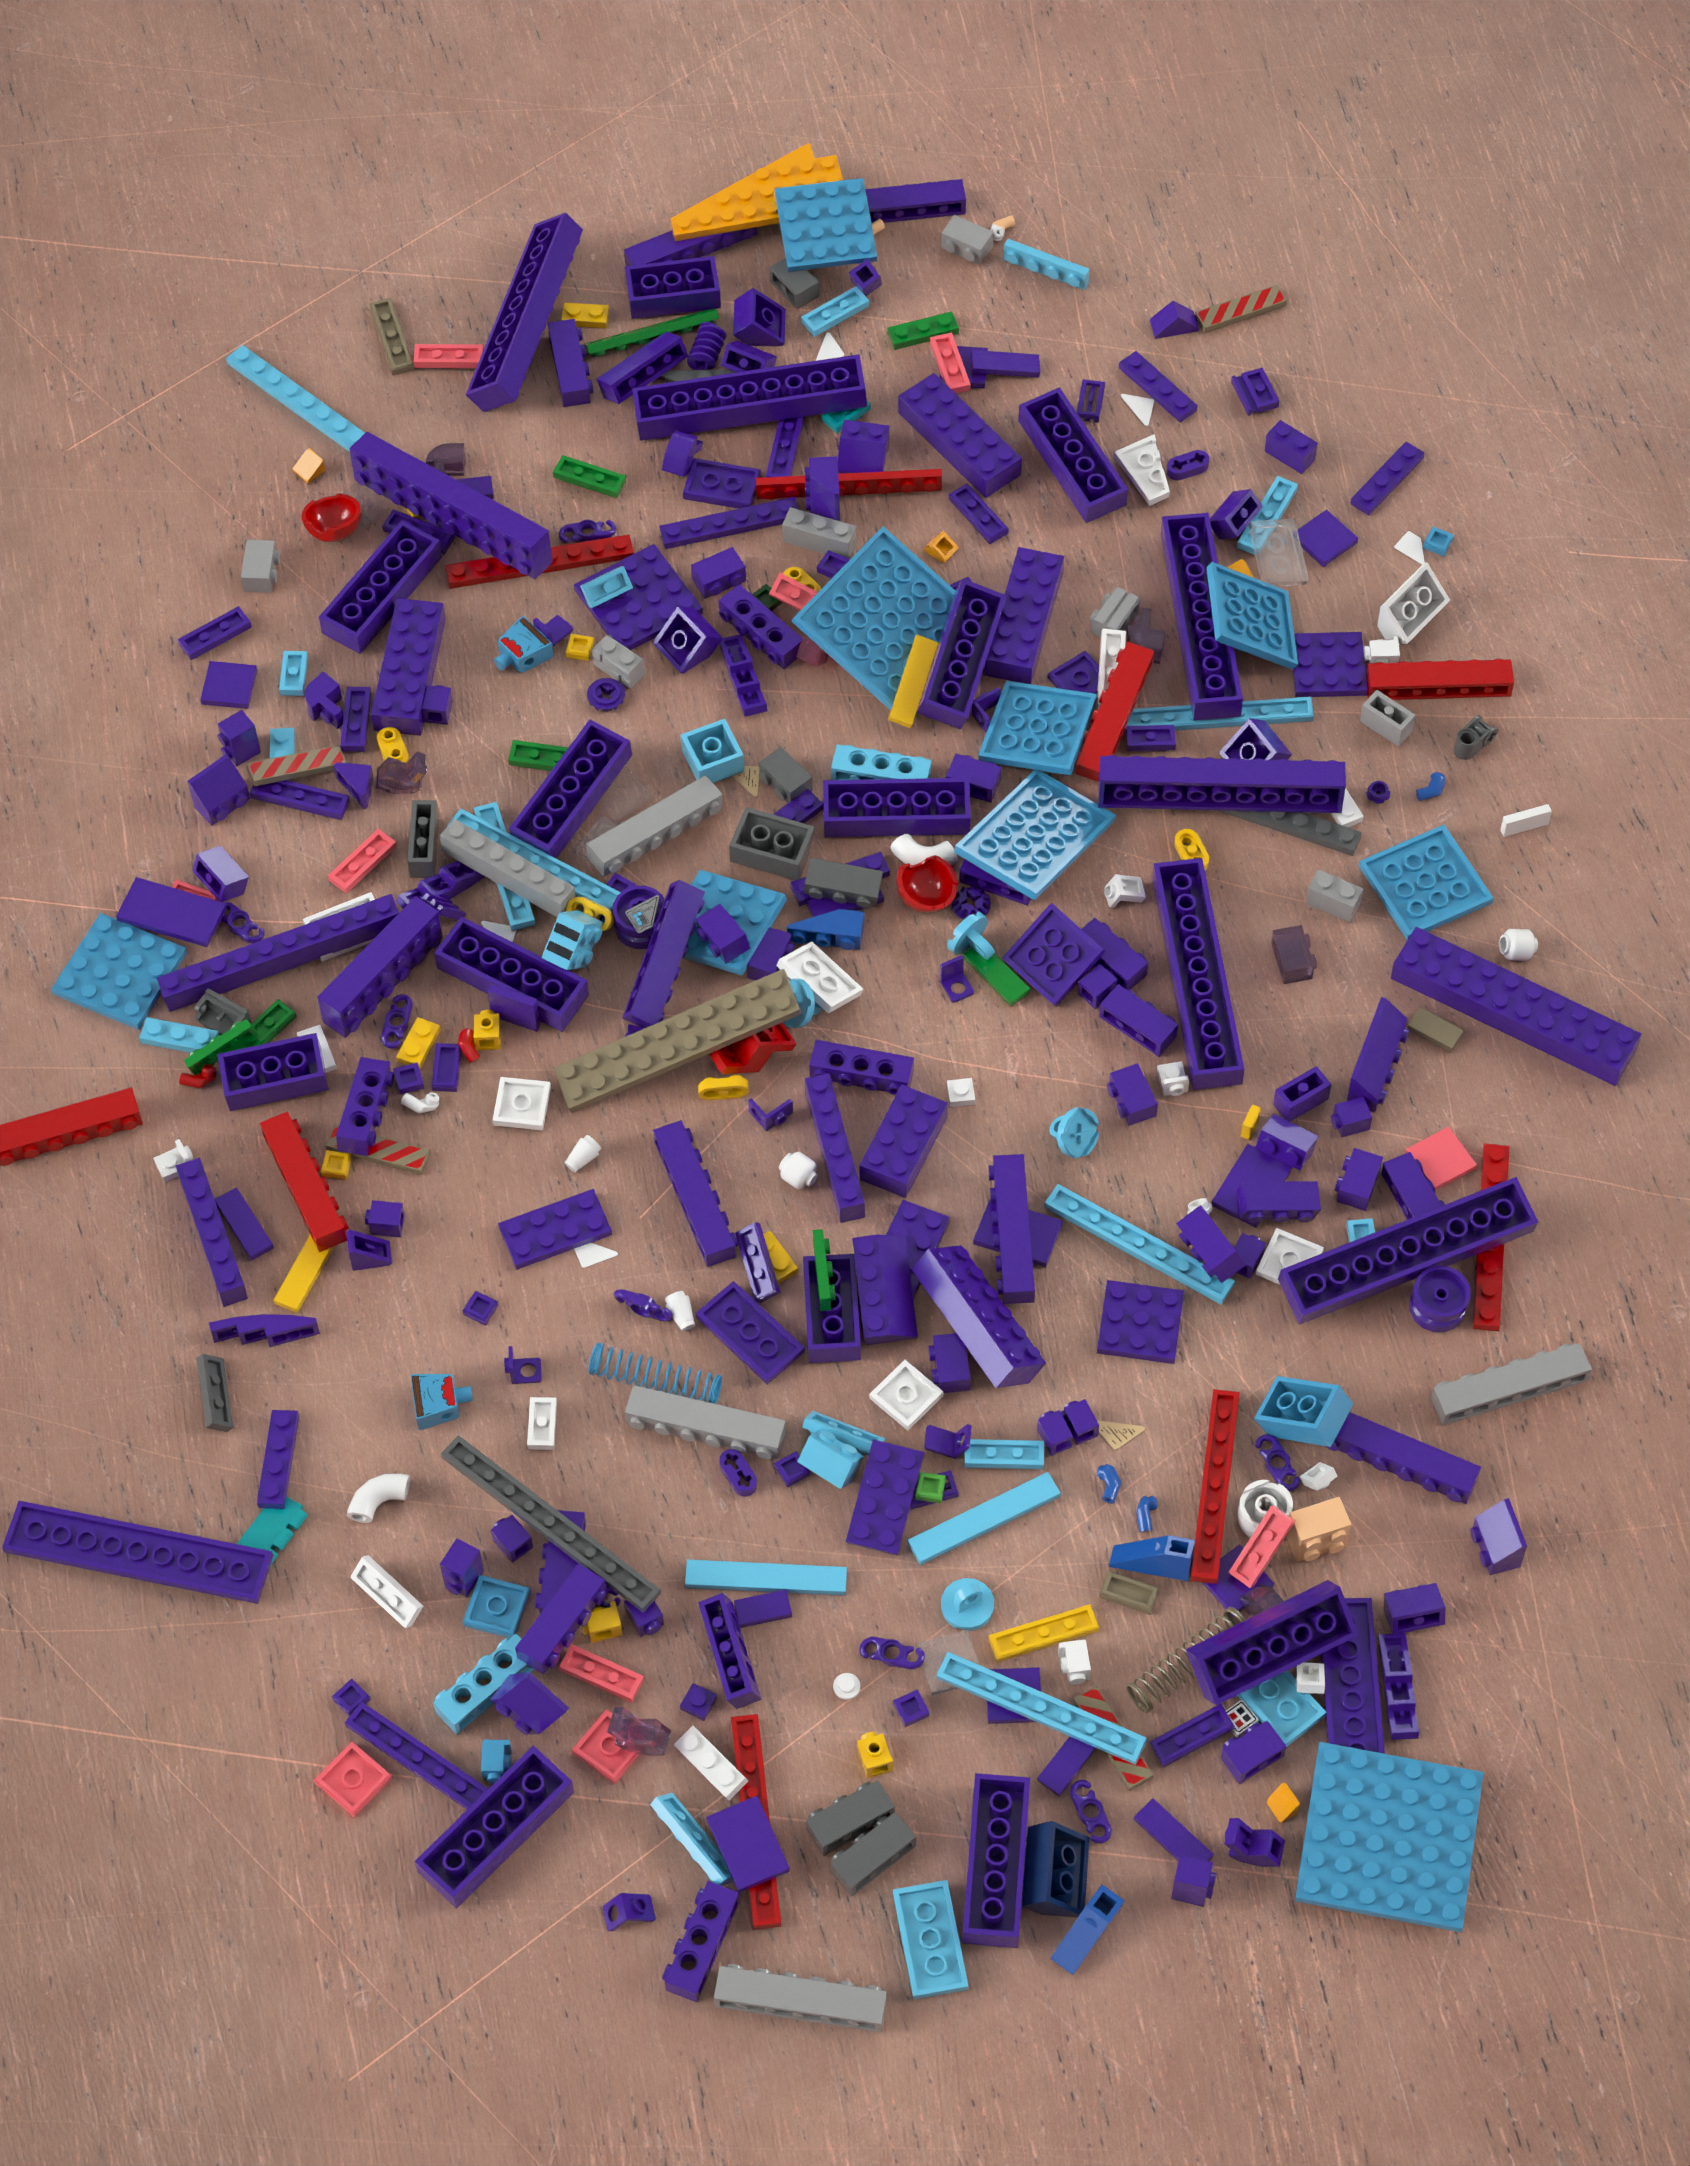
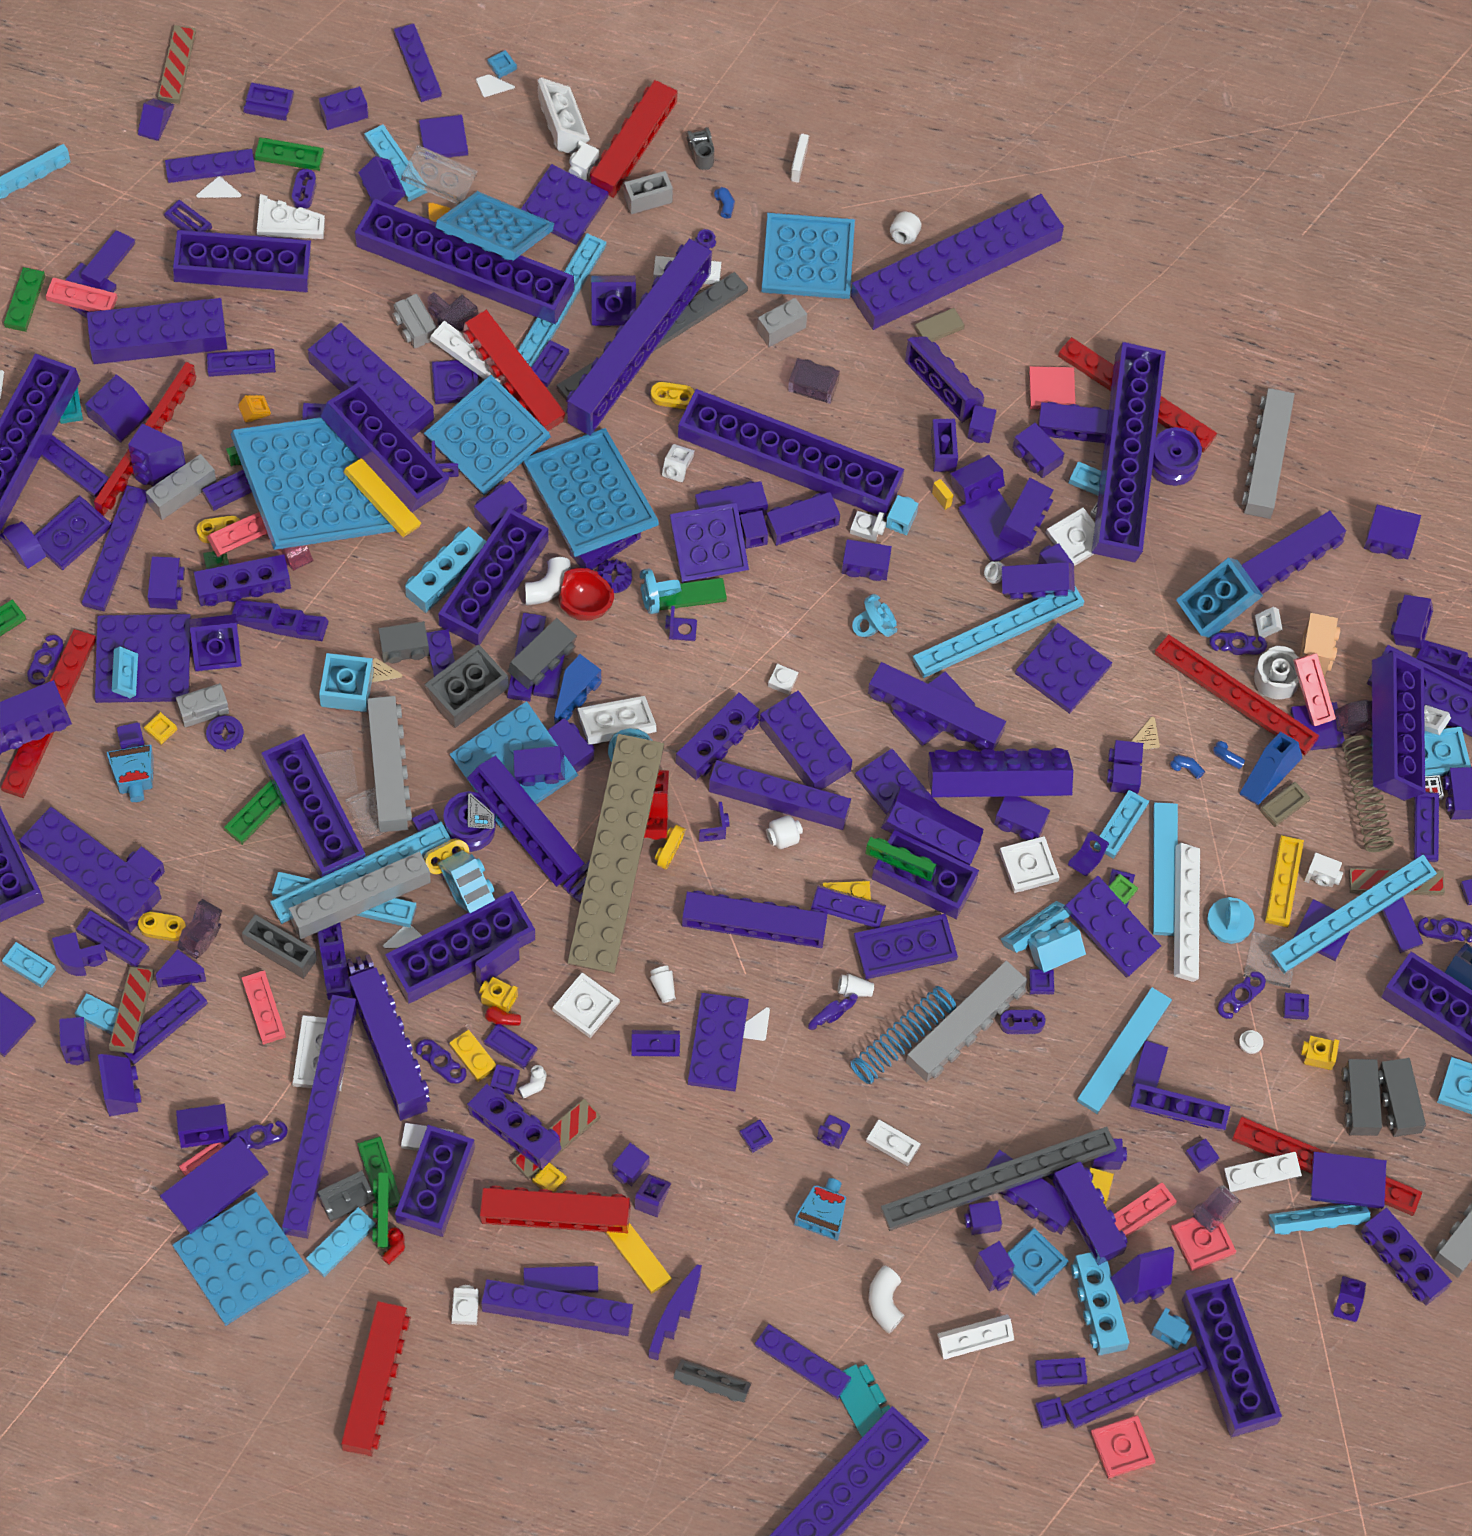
camera: 65 degrees left, 5 degrees up
(395, 1684) = (1061, 1372): none -> dark purple plate
(518, 1177) = (655, 1043): none -> dark purple plate
(948, 1559) = (1187, 912): none -> white plate
(1203, 1099) = (902, 515): none -> medium azure brick
(1214, 434) = (289, 154): none -> green plate

